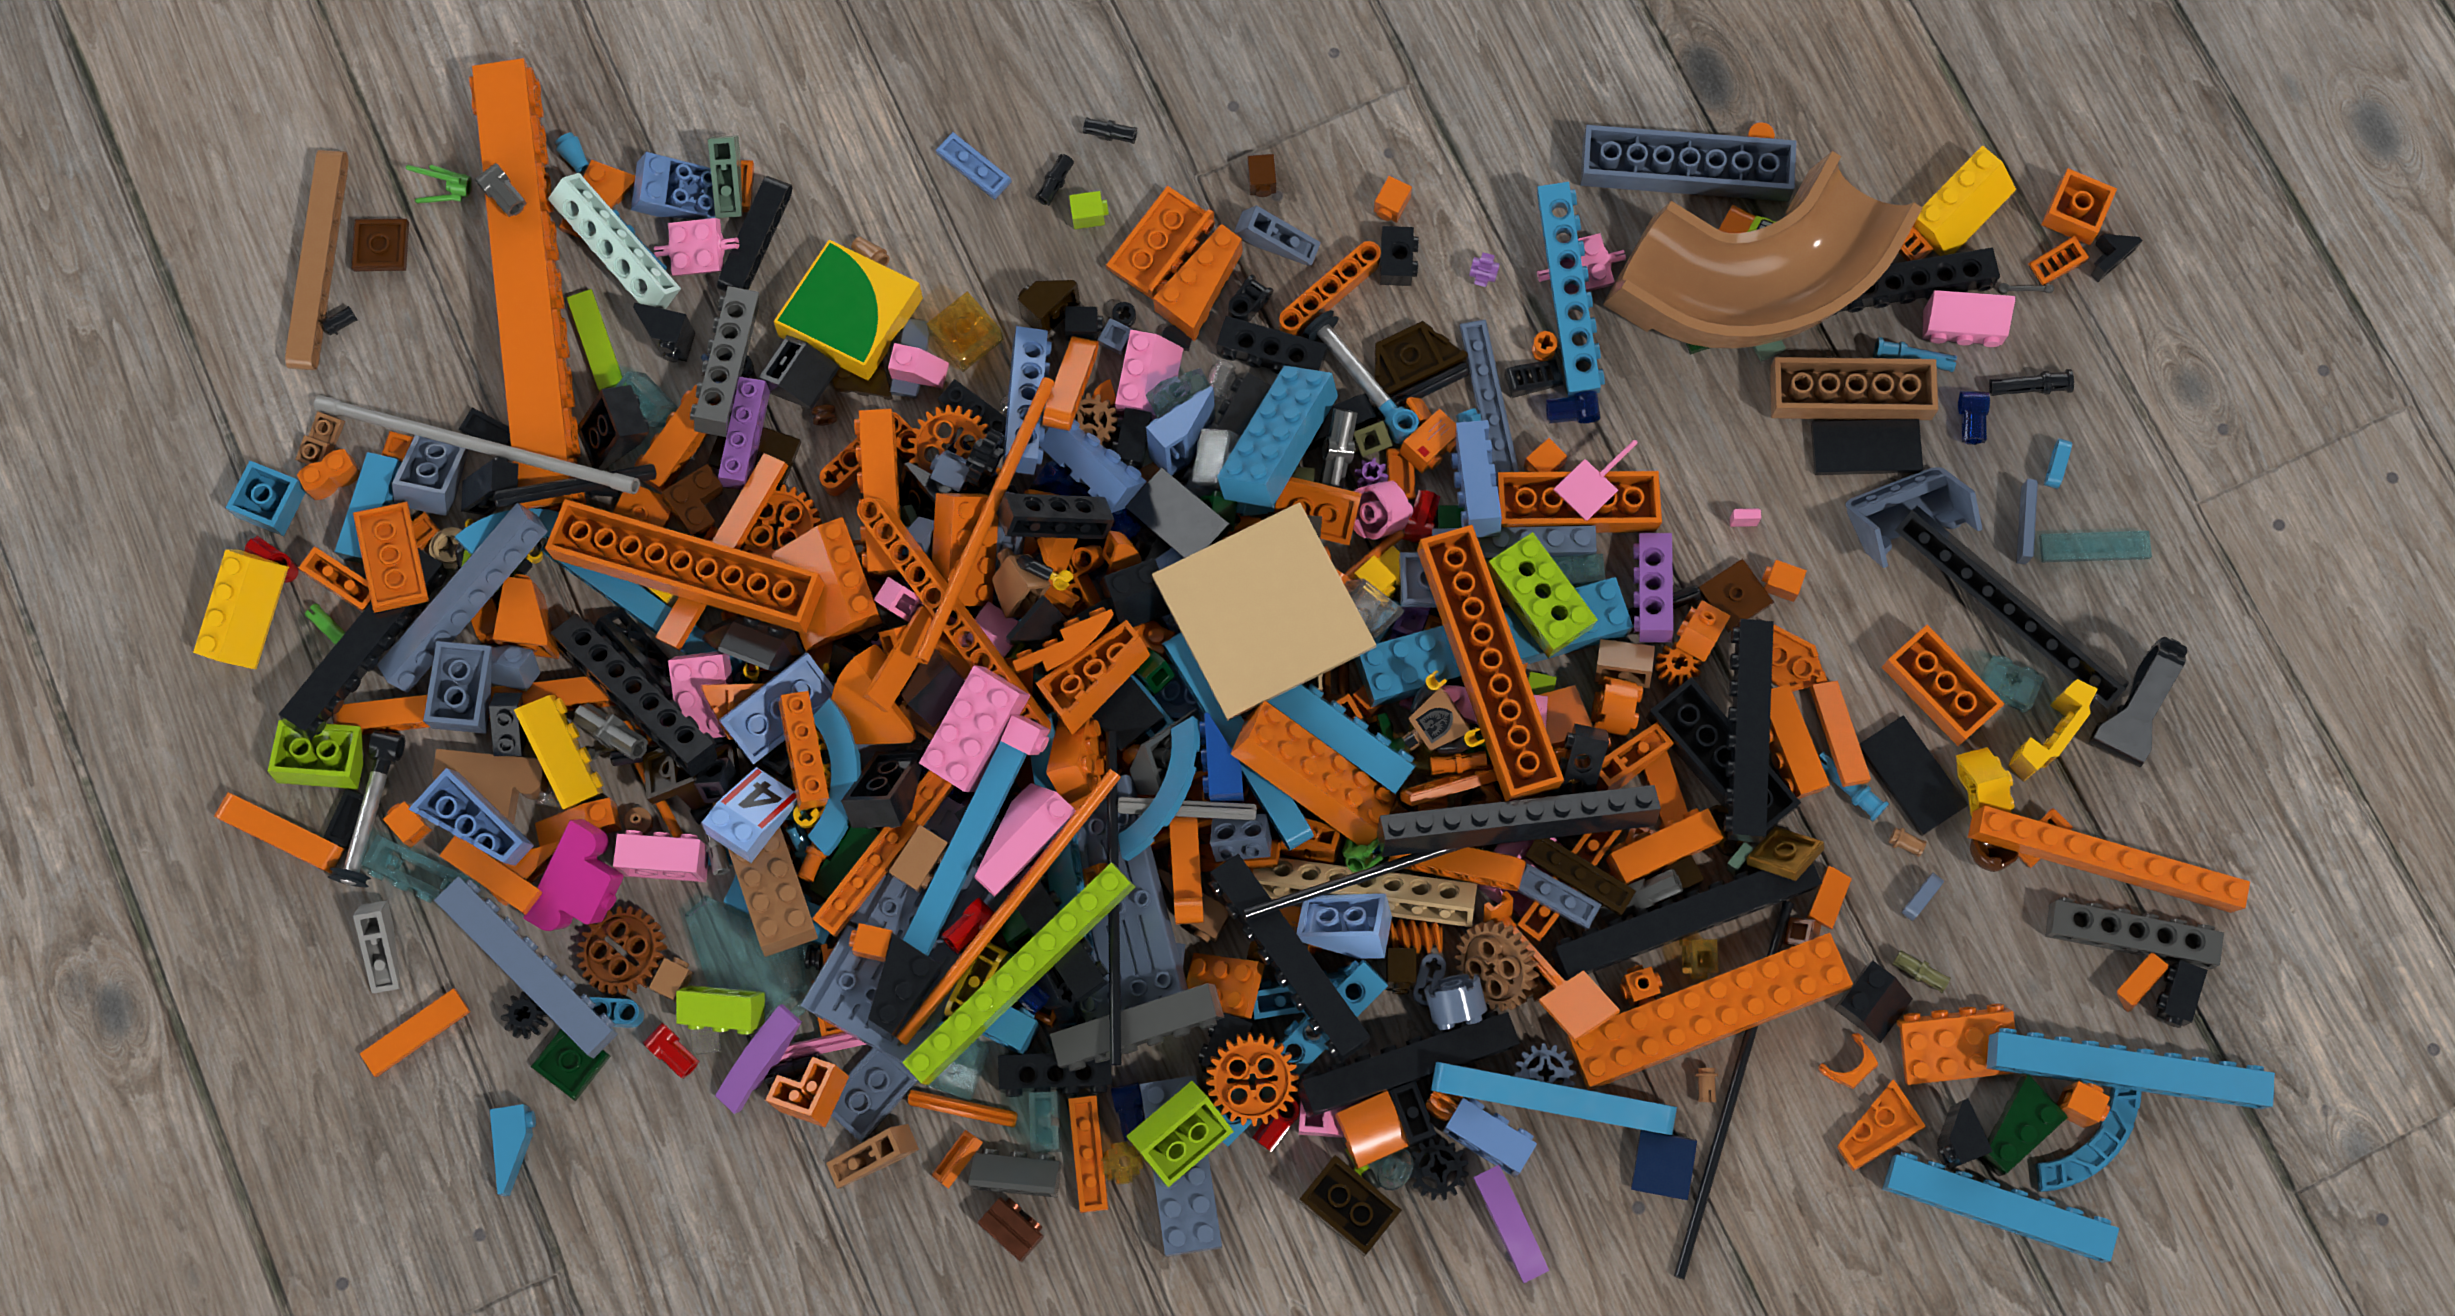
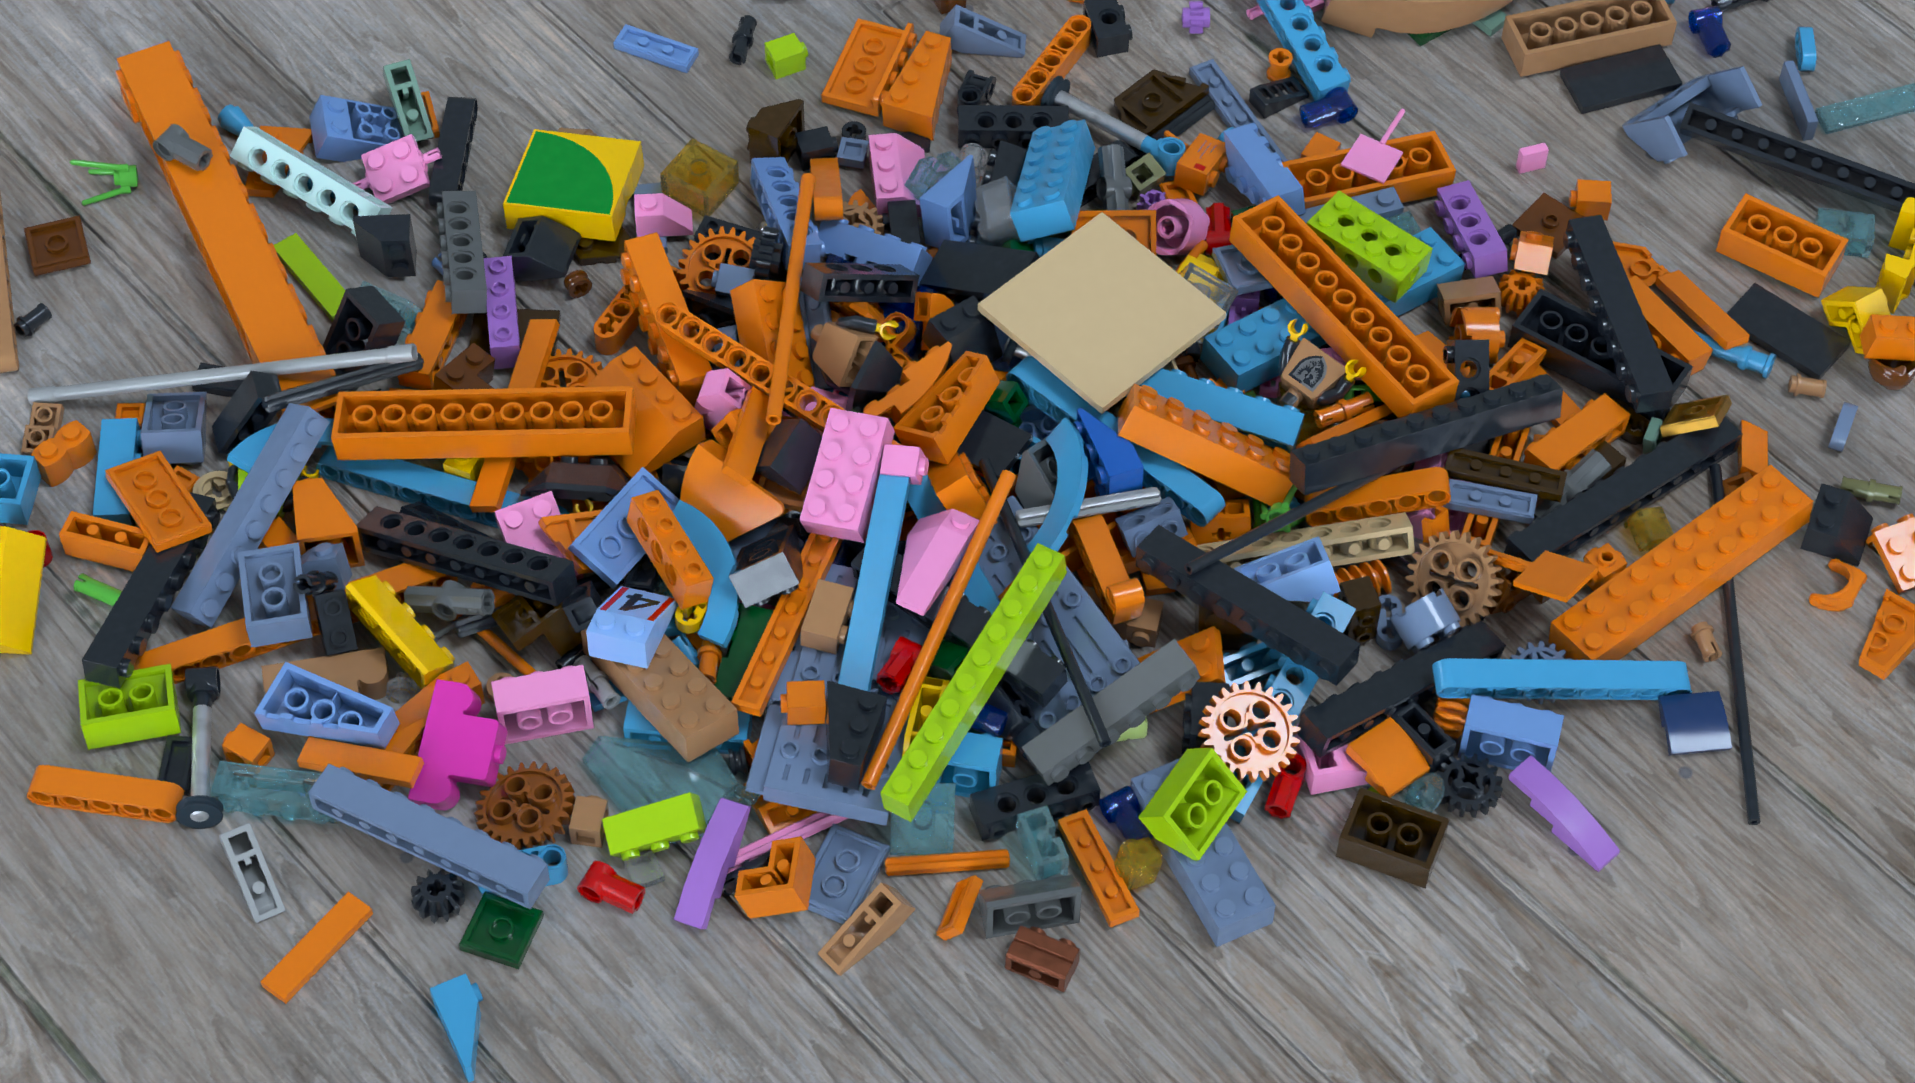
camera: 20 degrees left, 20 degrees down
(494, 691) = (315, 582): none -> black pin

